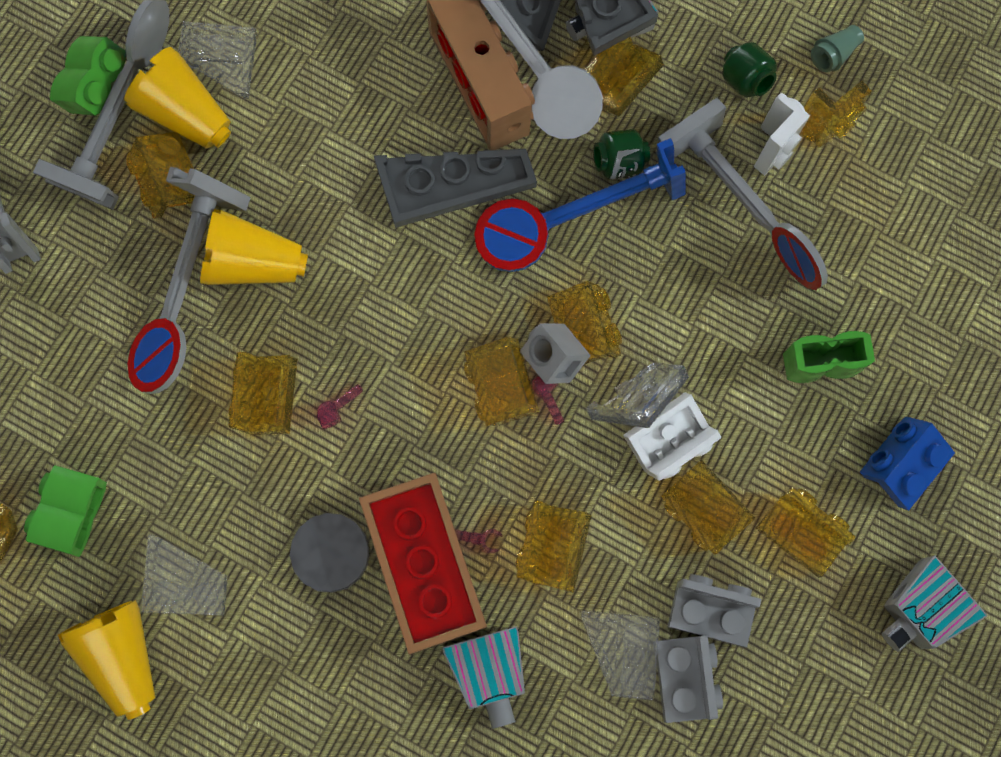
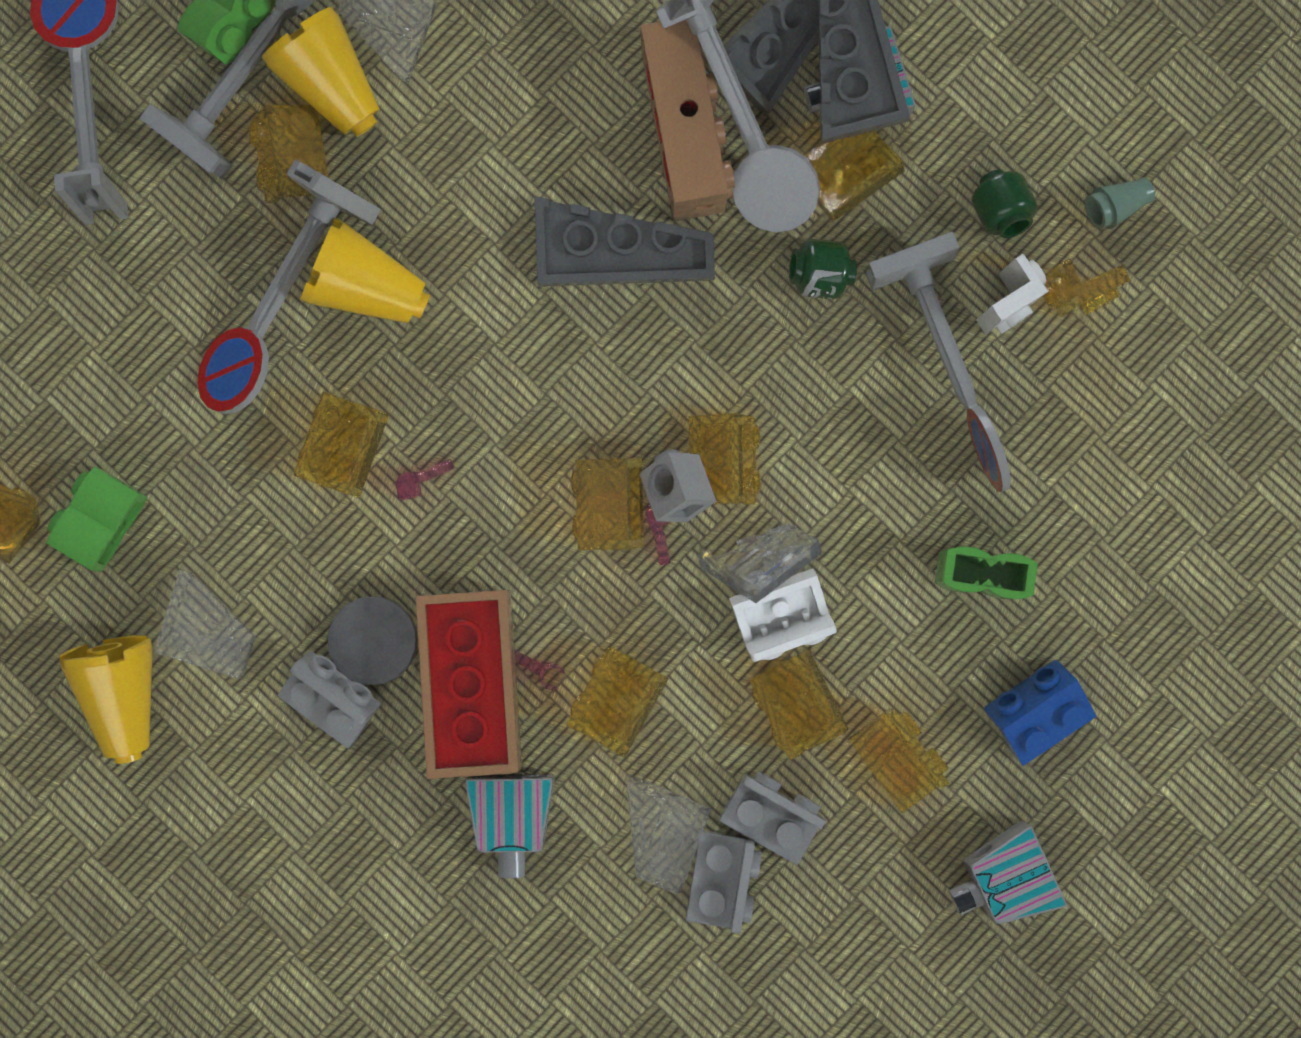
camera: 20 degrees right, 10 degrees up
(304, 611) = (329, 698): none -> light grey bracket
(516, 234) = (674, 330): piece -> none

